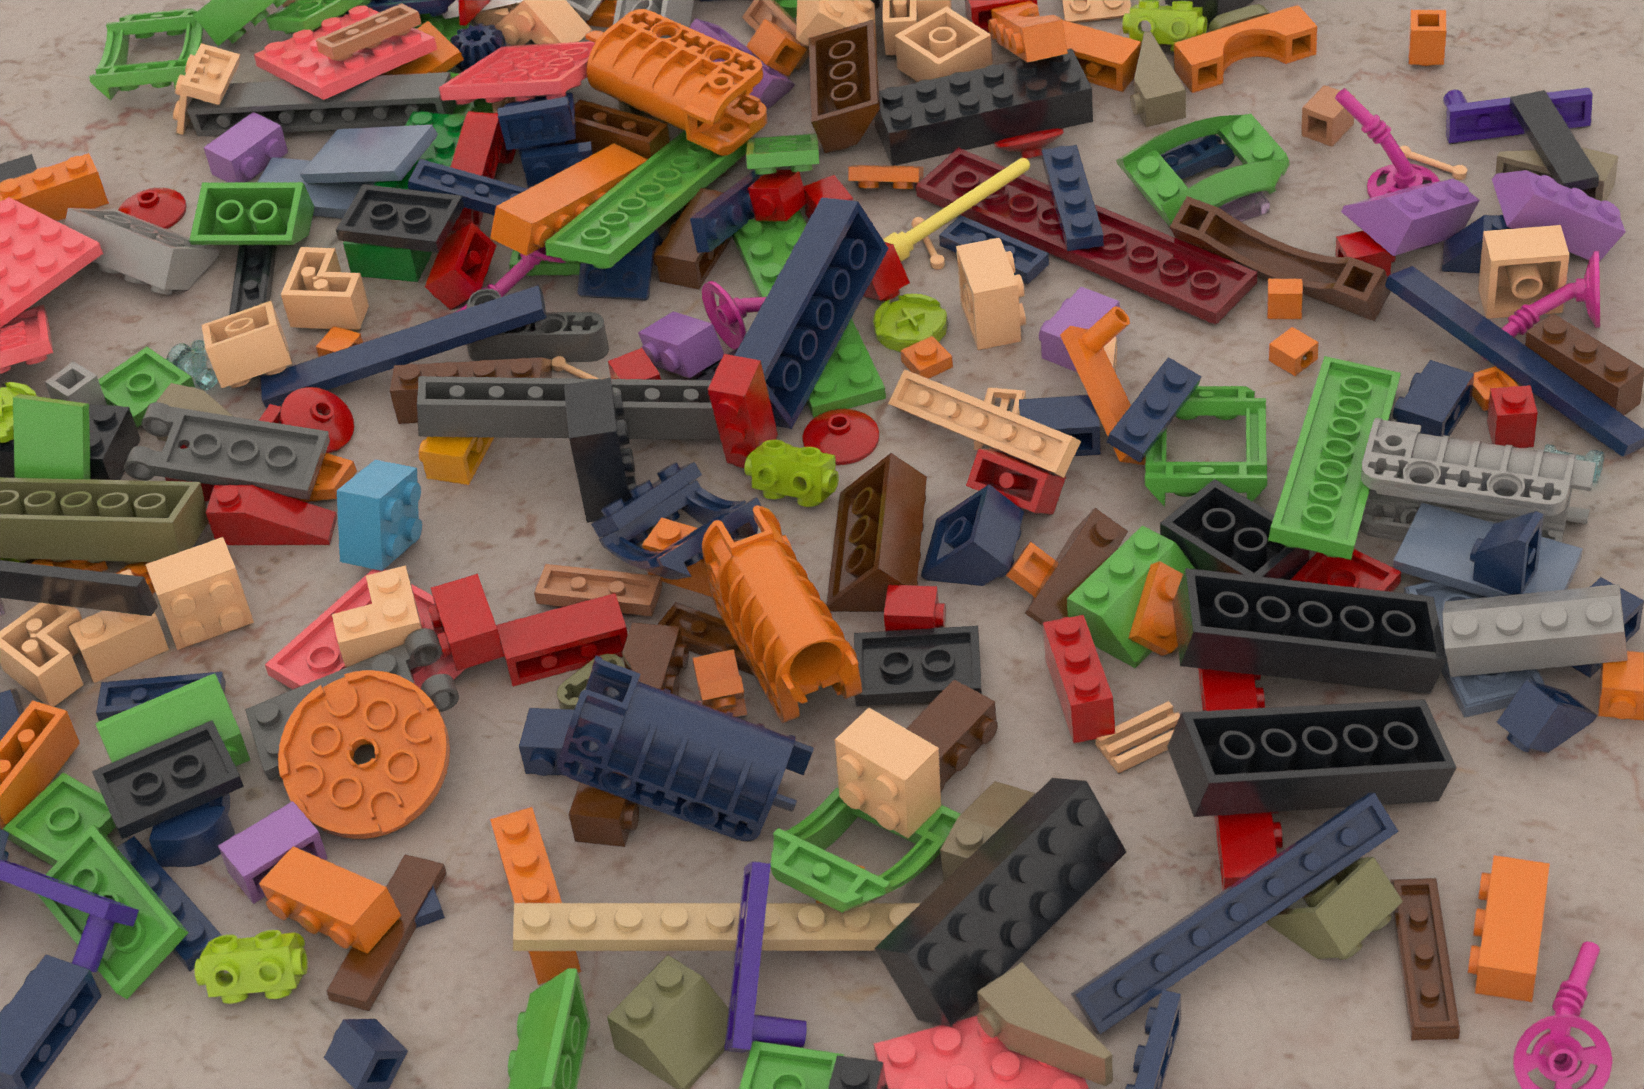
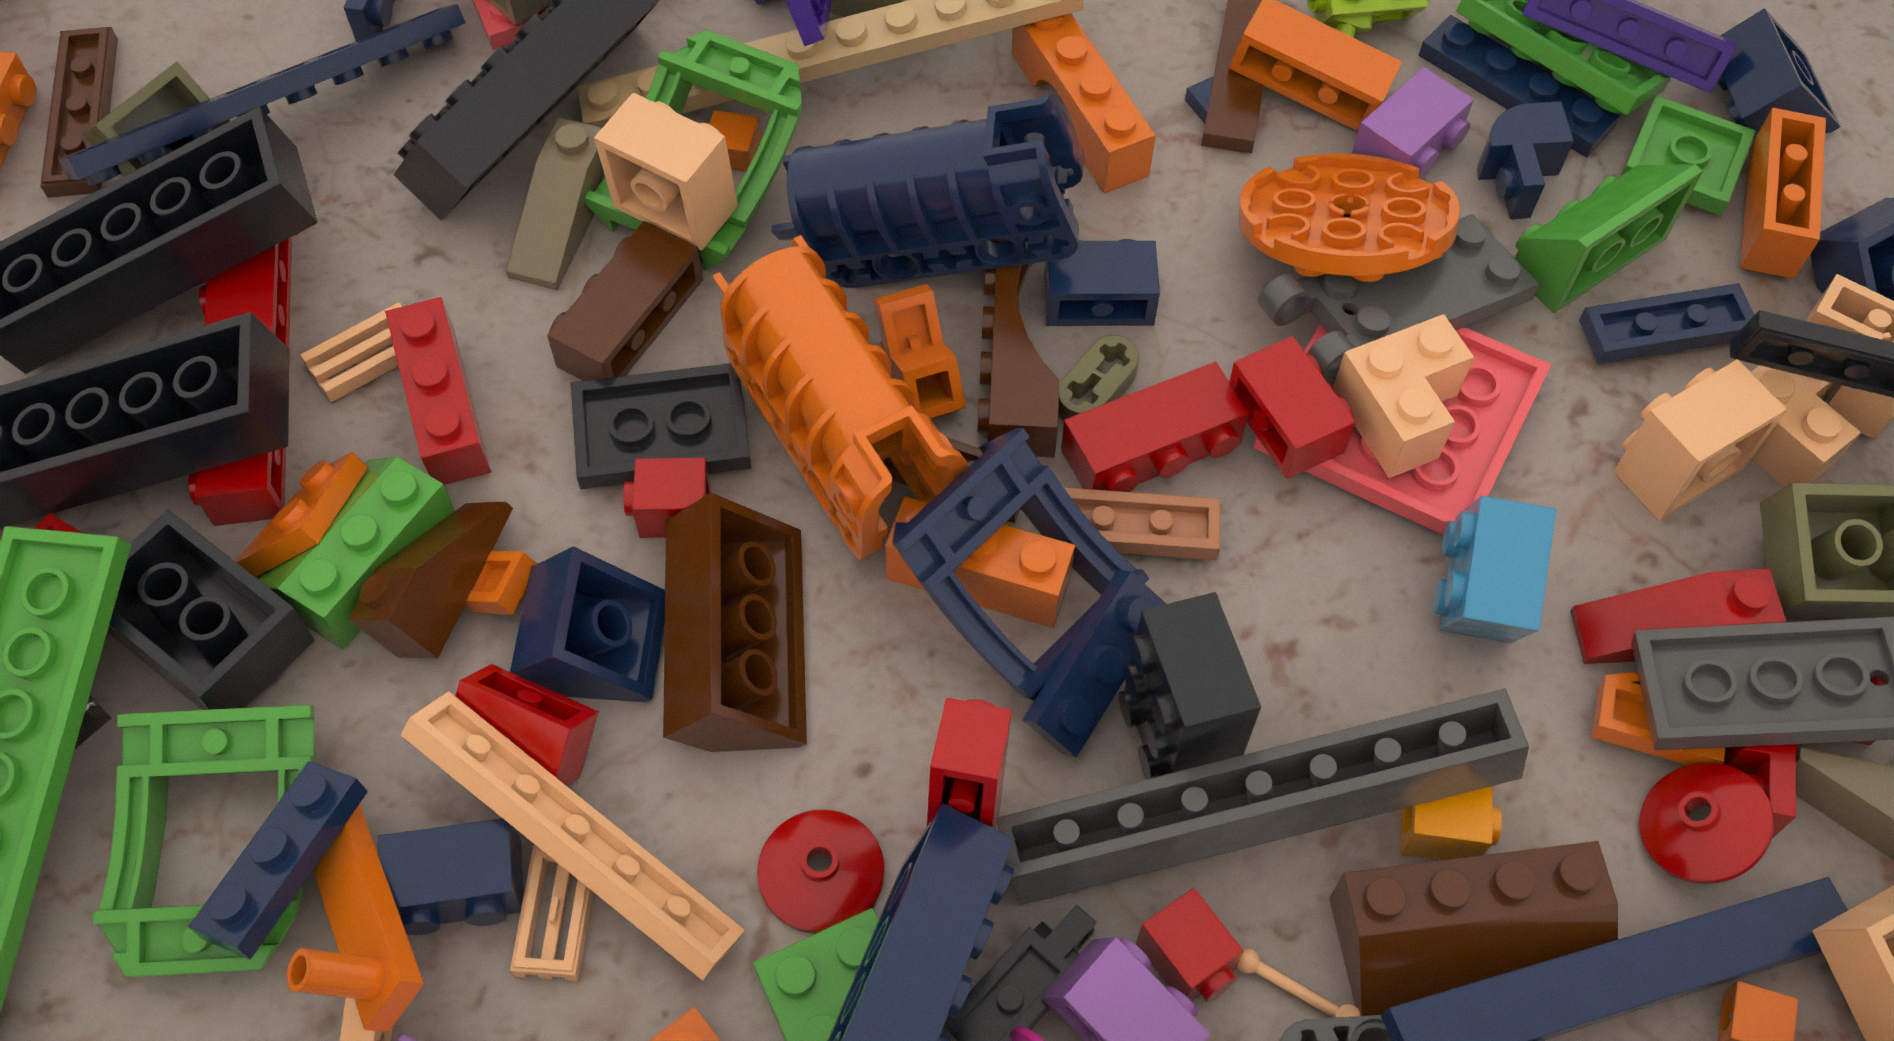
camera: 165 degrees right, 15 degrees up
(167, 779) = (1575, 148): black plate -> none
(792, 472) = (895, 747): lime brick -> none

